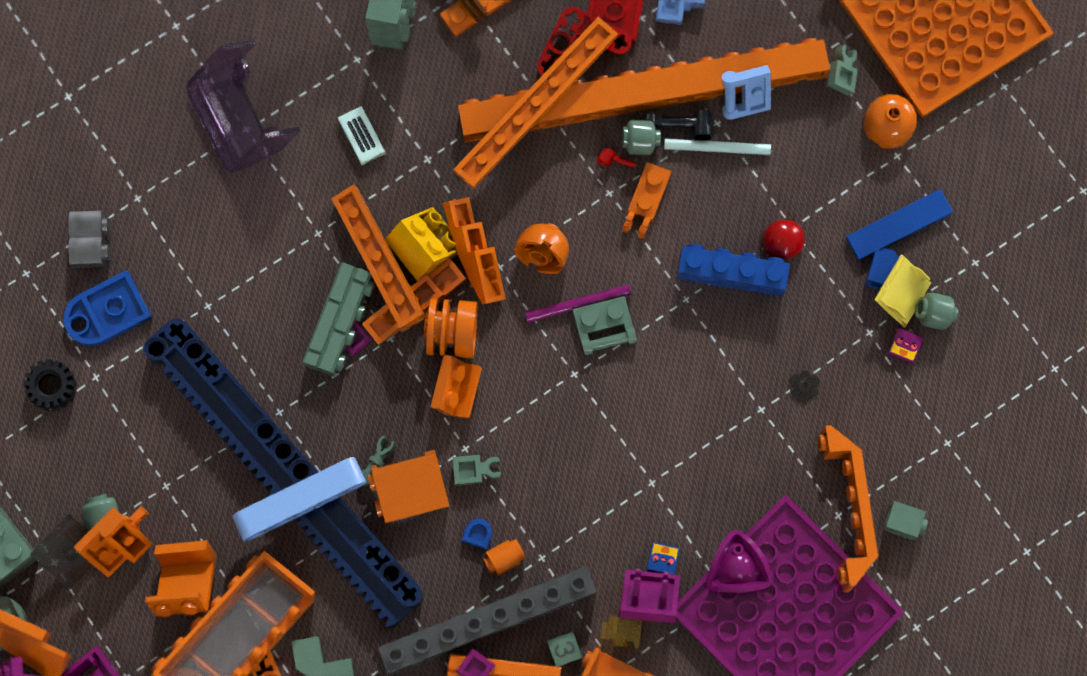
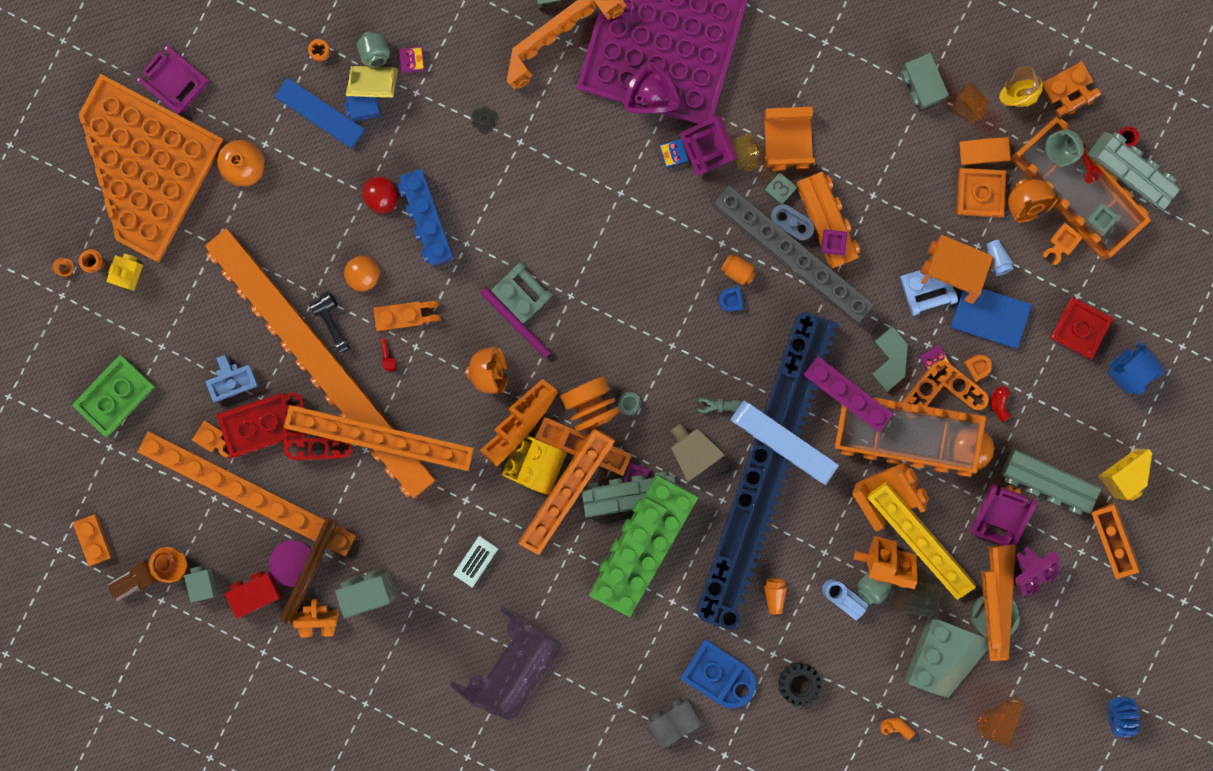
camera: 120 degrees left, 10 degrees up
(105, 478) = (846, 599): none -> light blue piece
(118, 587) = (921, 540): none -> yellow plate
(153, 410) = (775, 595): none -> orange cone
(281, 304) = (642, 545): none -> bright green plate
(310, 593) = (848, 394): none -> magenta plate
(344, 408) = (693, 451): none -> dark tan torso
(408, 487) = (728, 367): orange panel -> none
(429, 371) = (629, 403): none -> sand green plate
(456, 387) = (632, 376): orange bracket -> none
(470, 469) = (687, 331): sand green plate -> none
(522, 641) = (792, 221): none -> sand blue plate
(640, 137) = (360, 345): sand green head -> none
(713, 179) = (362, 273): none -> orange hair
(715, 146) = (333, 283): light aqua bar -> none
(755, 92) = (277, 275): light blue plate -> none
(842, 74) = (222, 218): sand green plate -> none
(957, 254) = (320, 43): none -> orange bush
(1014, 100) = (170, 78): none -> magenta container

